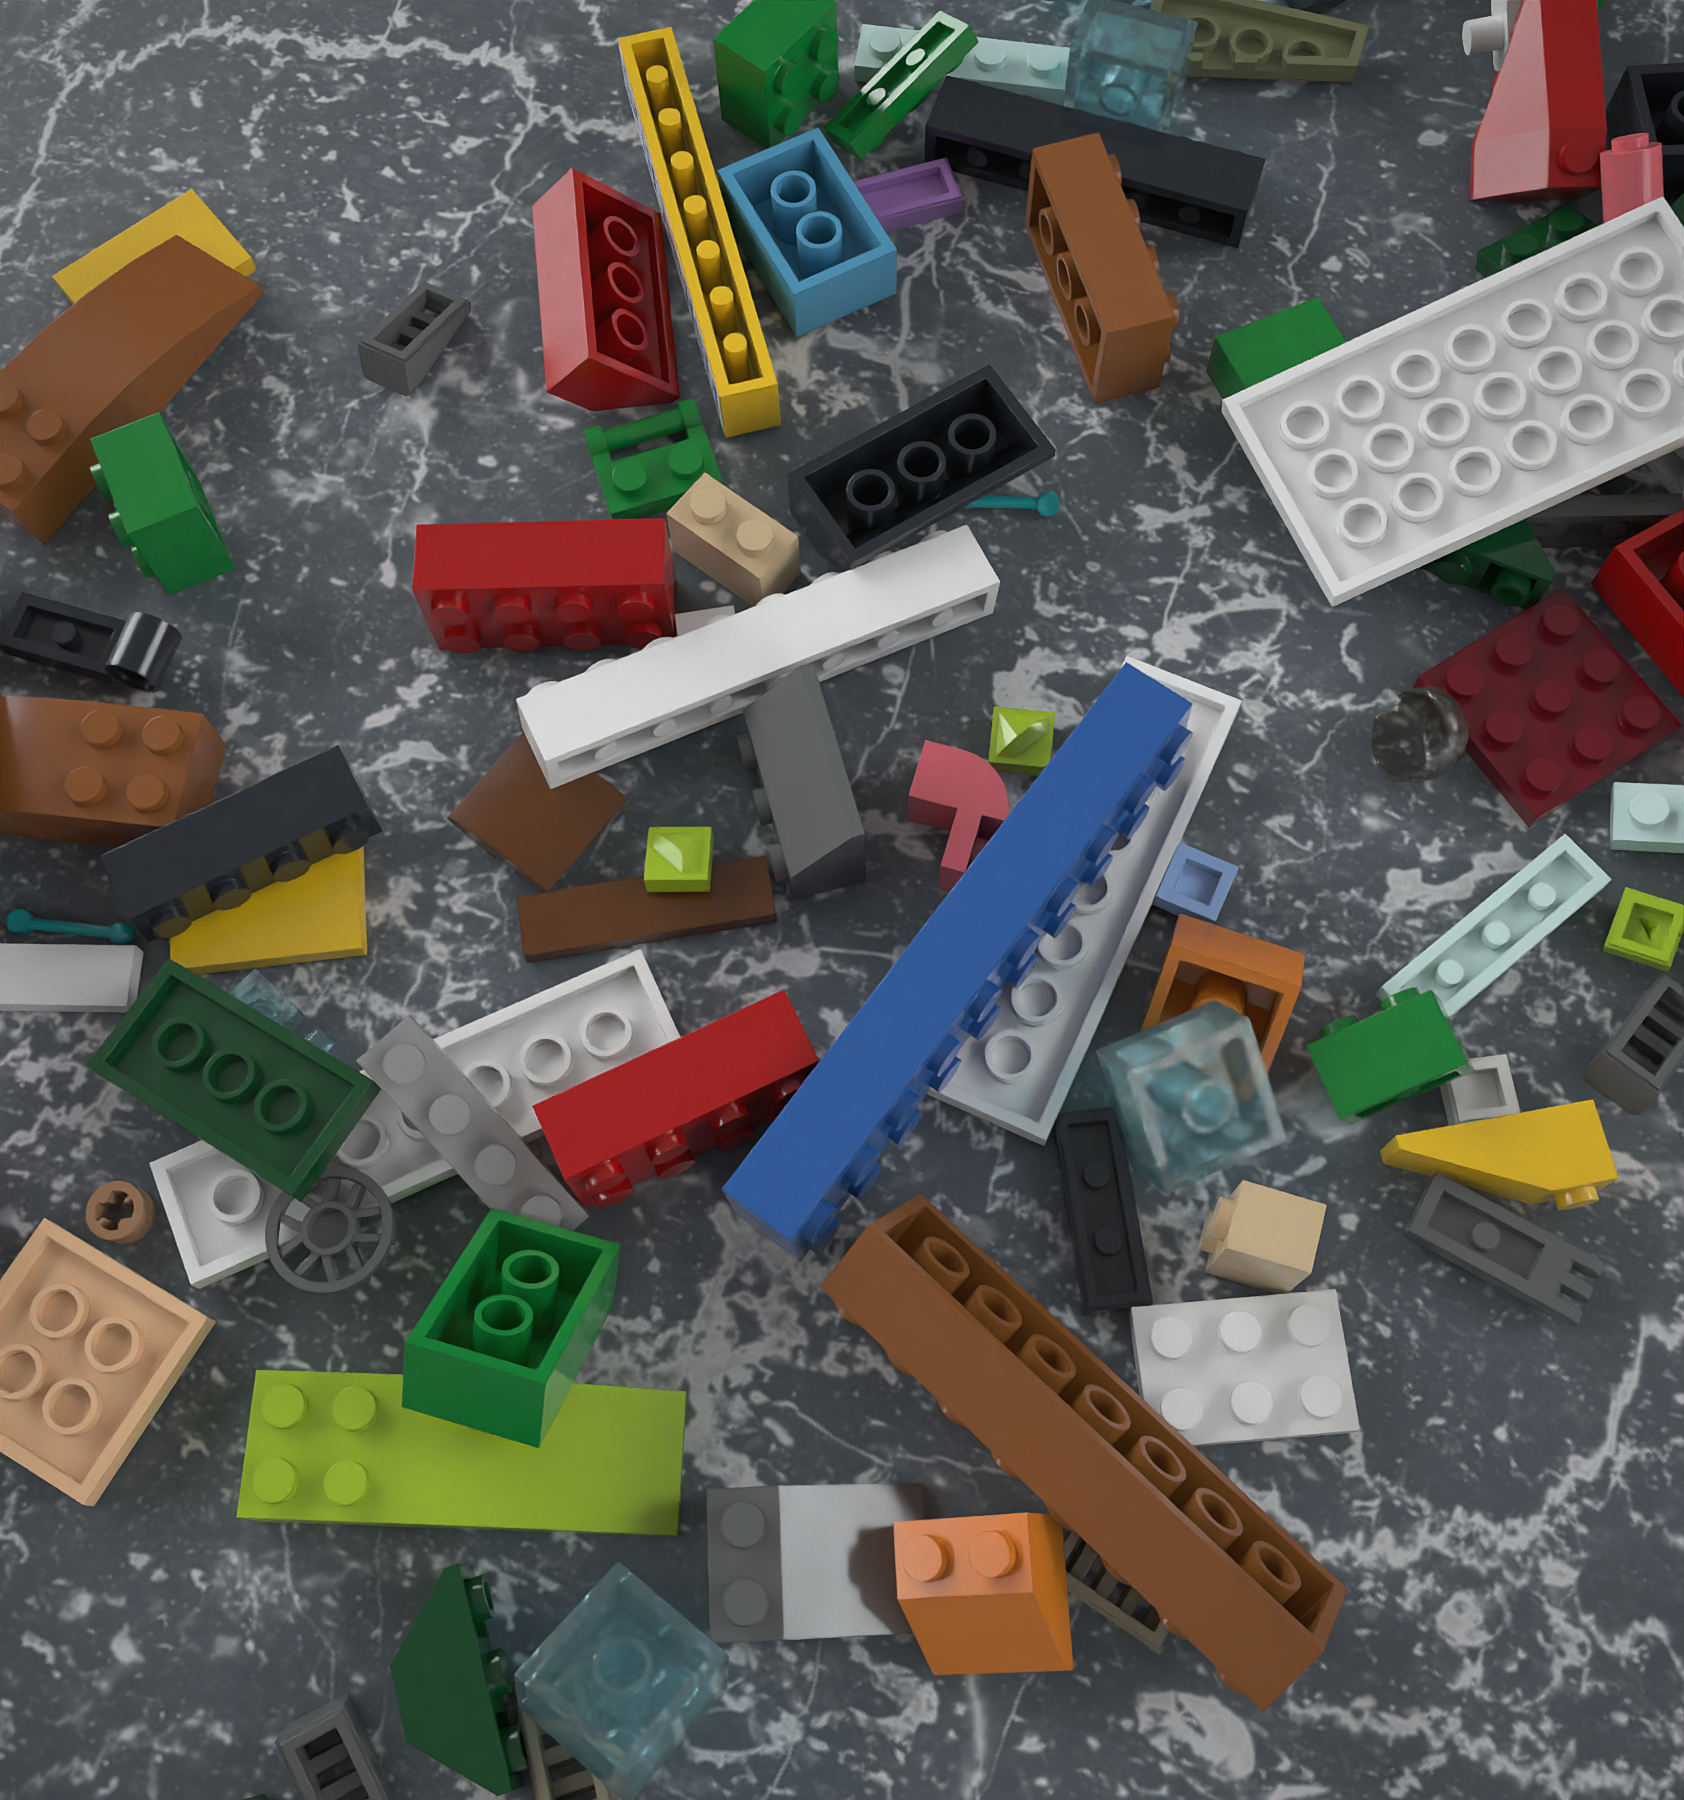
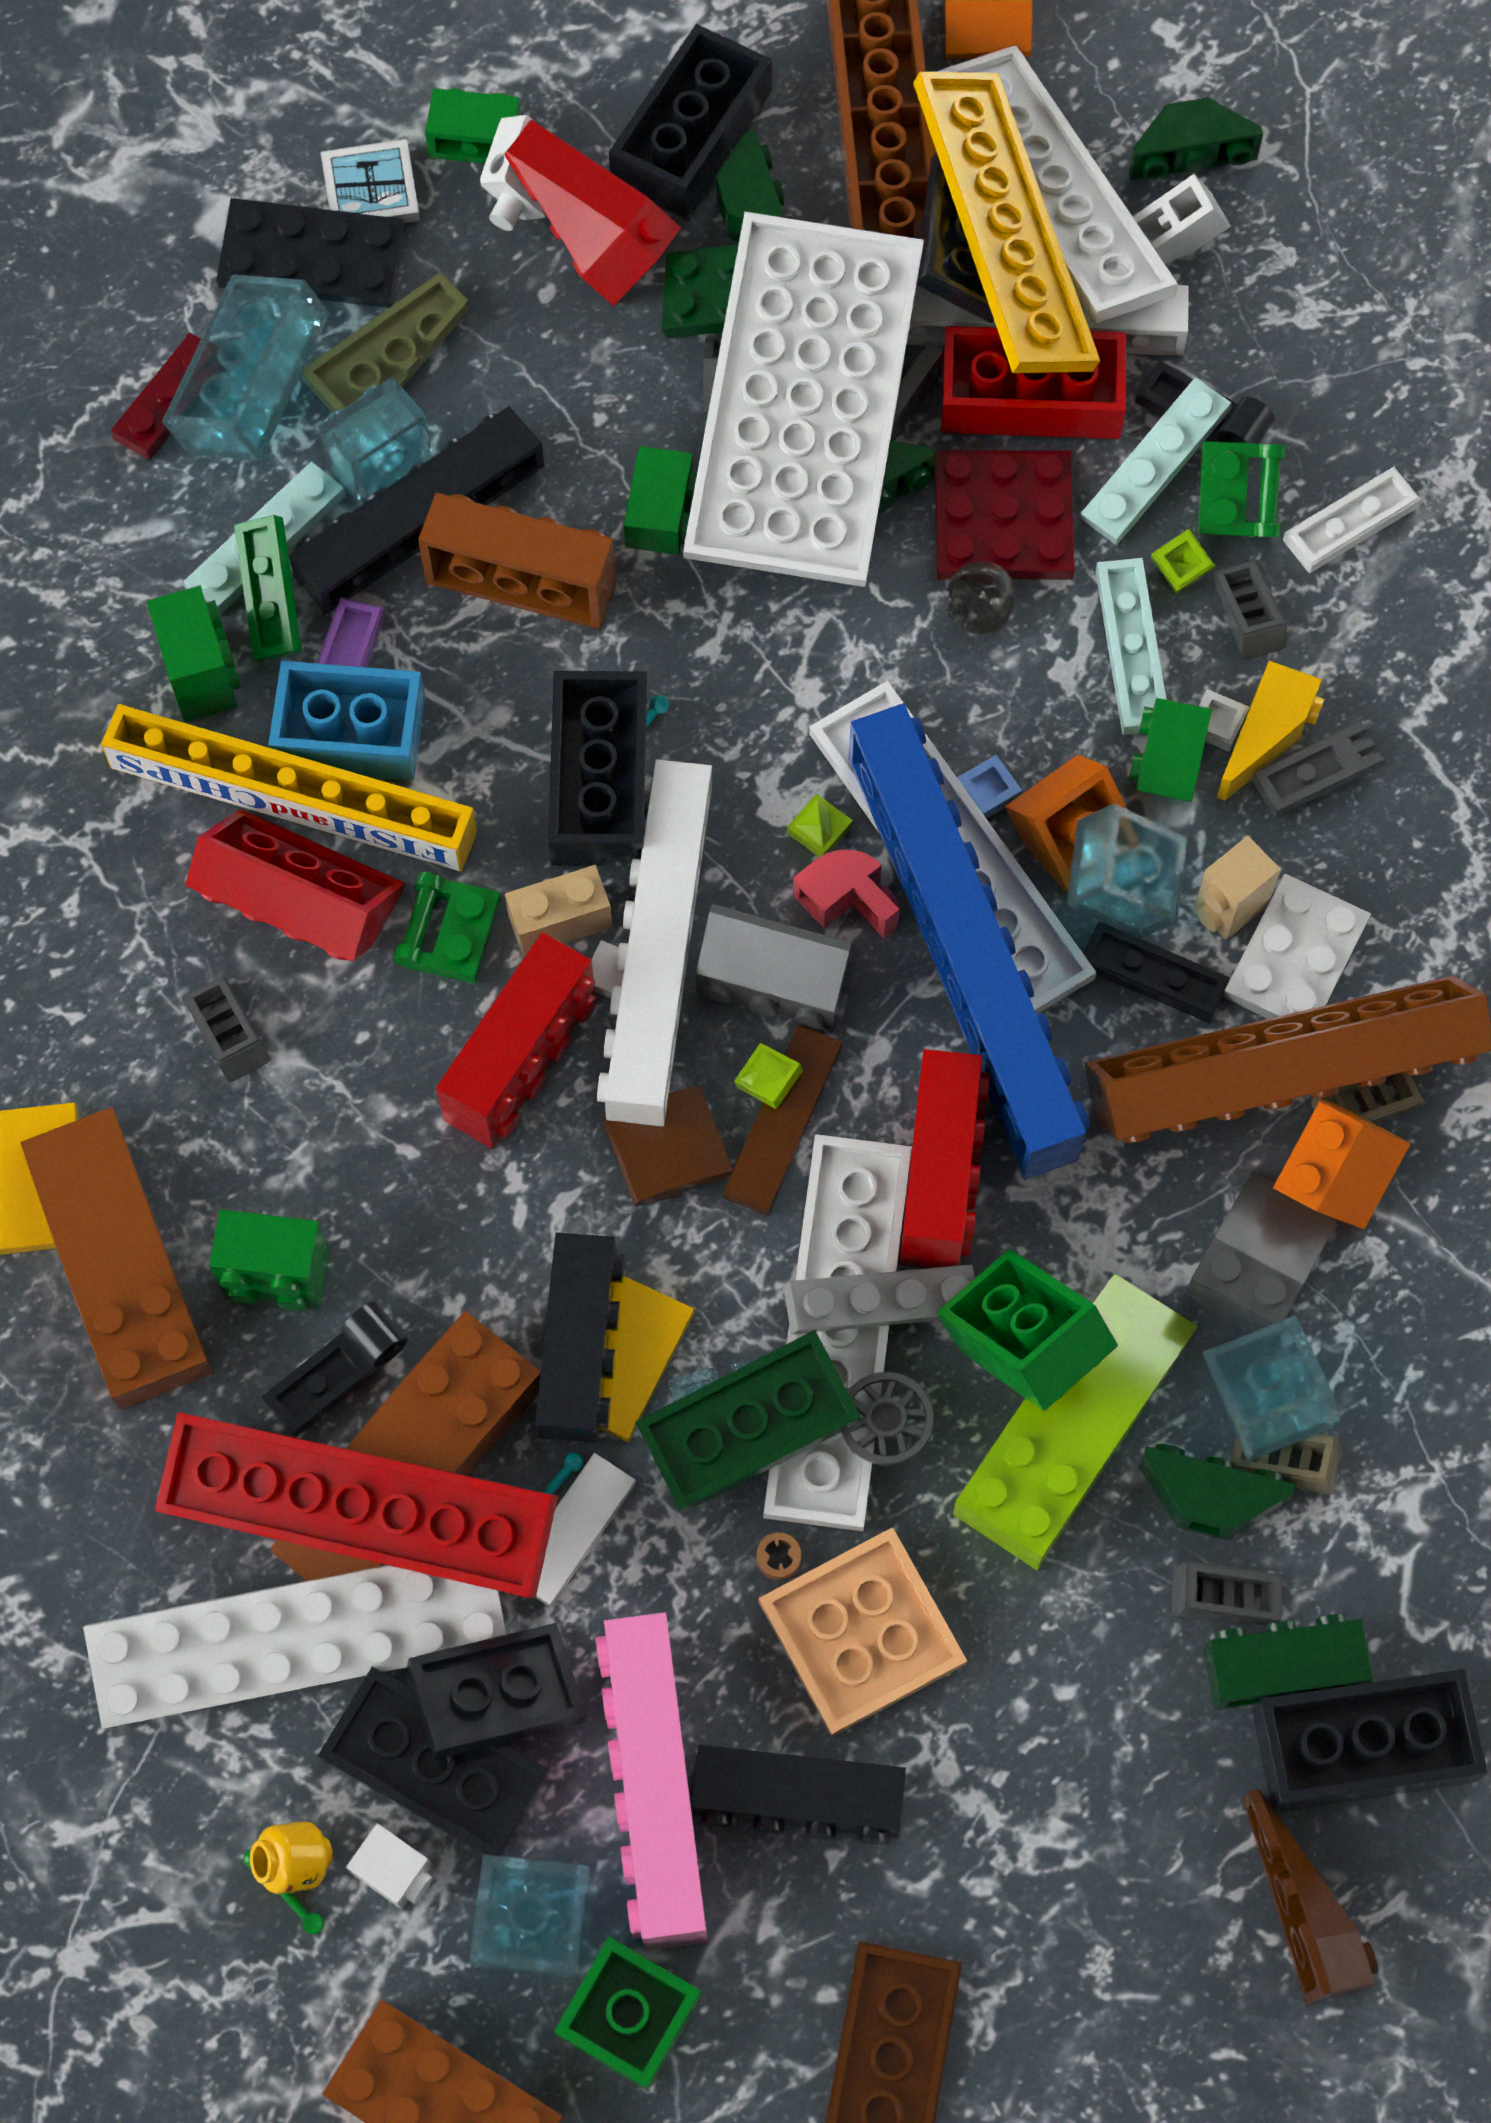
camera: 60 degrees left, 0 degrees up
(1630, 174) = (696, 212): coral brick -> none

